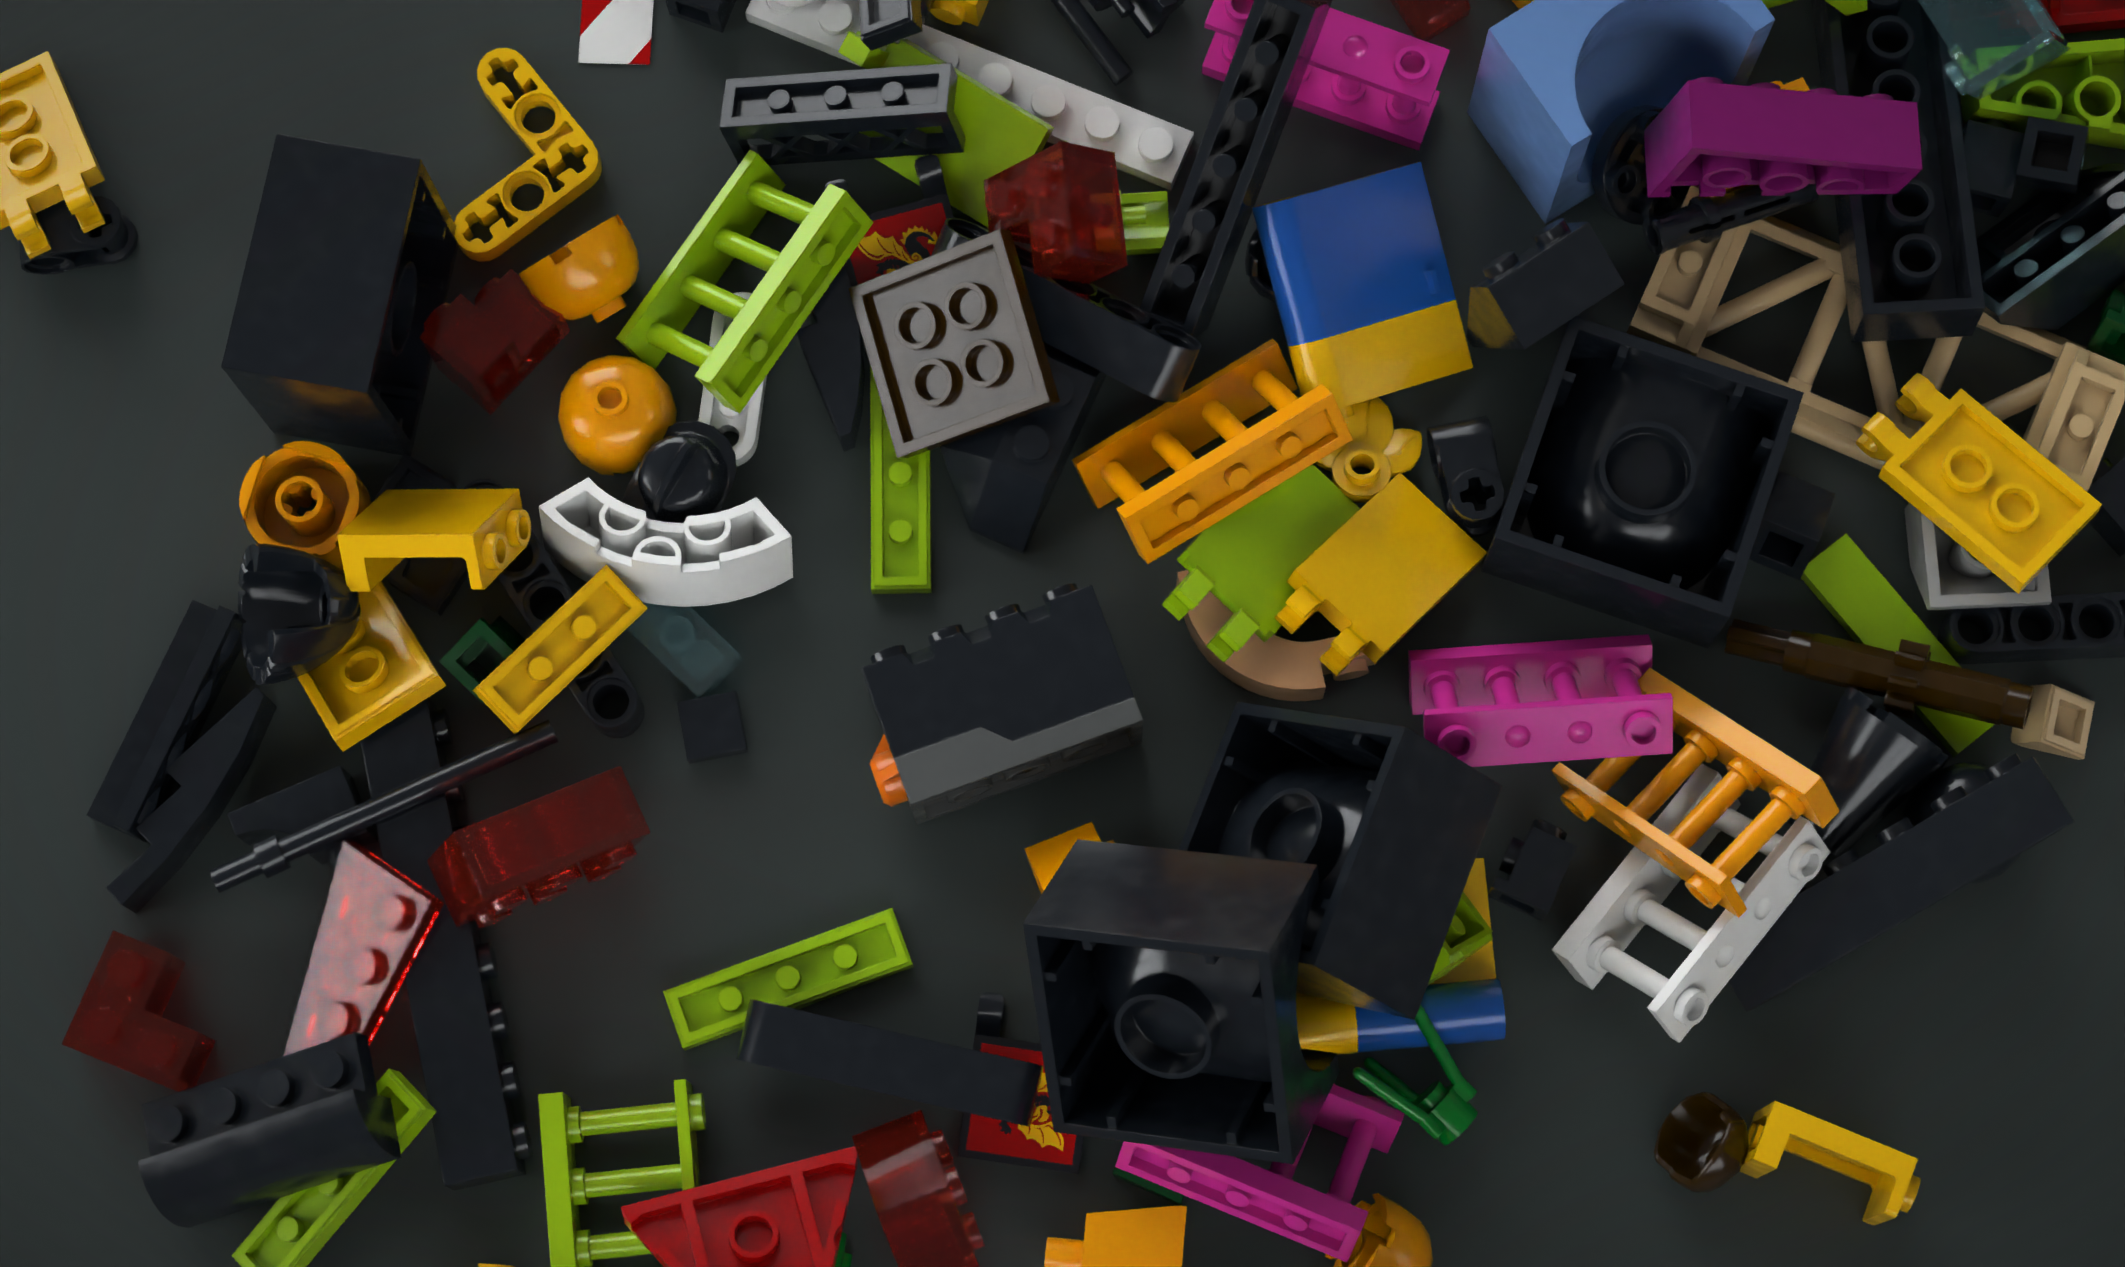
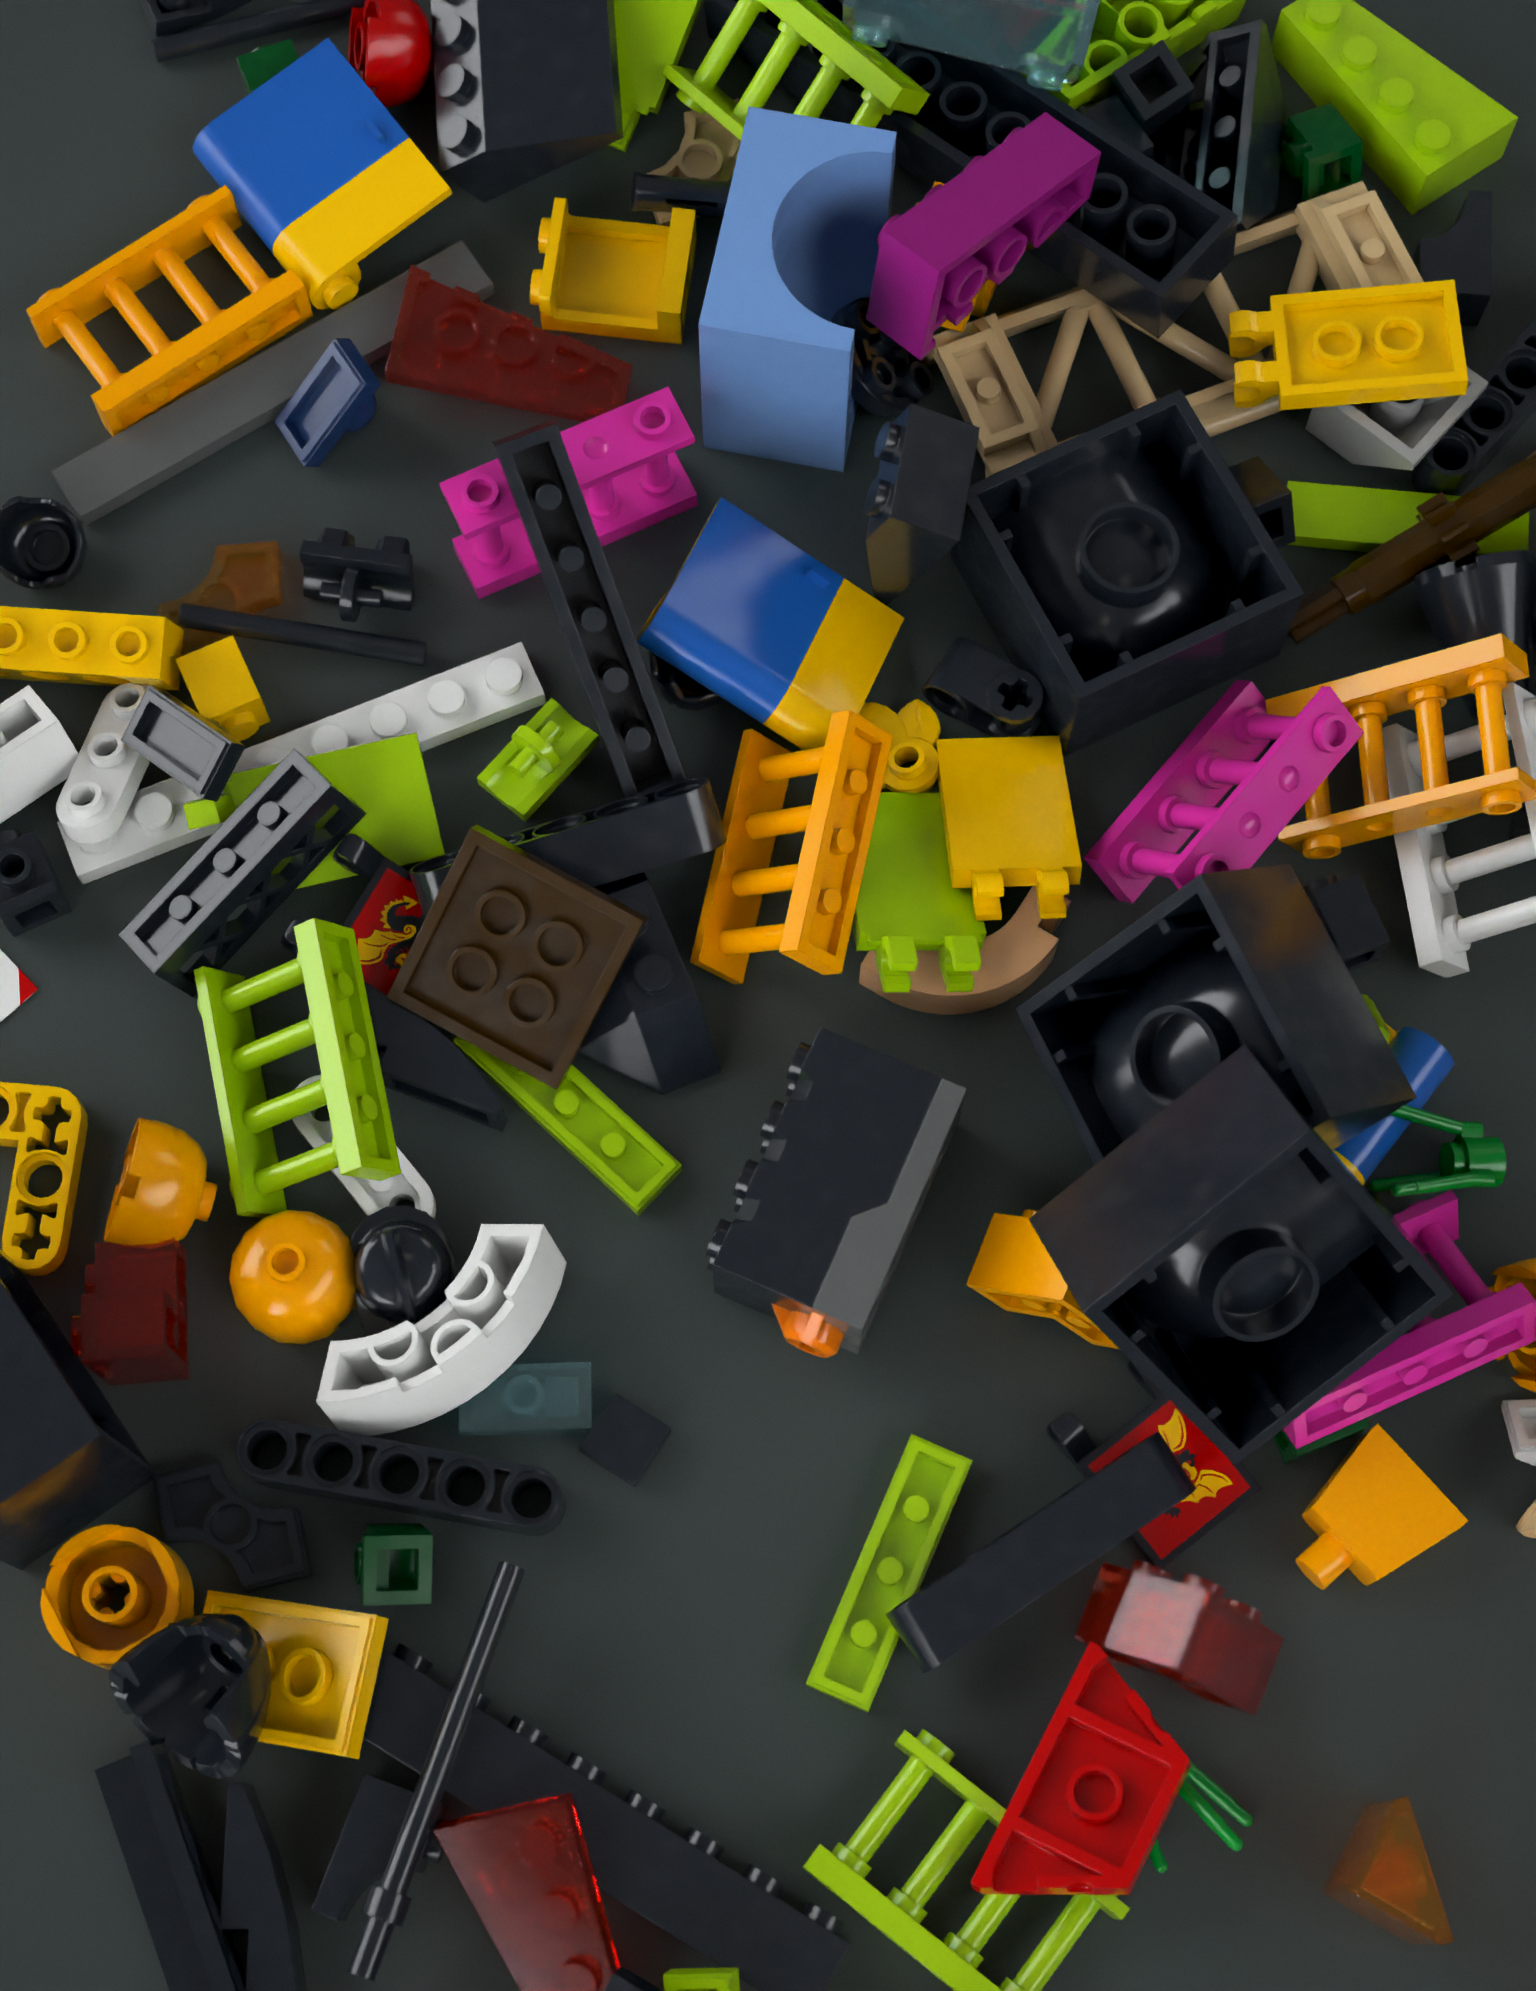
camera: 50 degrees left, 5 degrees down
(473, 524) = (250, 1499): yellow panel -> none
(539, 849) = (606, 1670): clear red brick -> none
(560, 649) = (452, 1496): yellow tile -> none
(1065, 208) = (494, 771): clear red brick -> none
(1709, 217) = (973, 339): black pin -> none

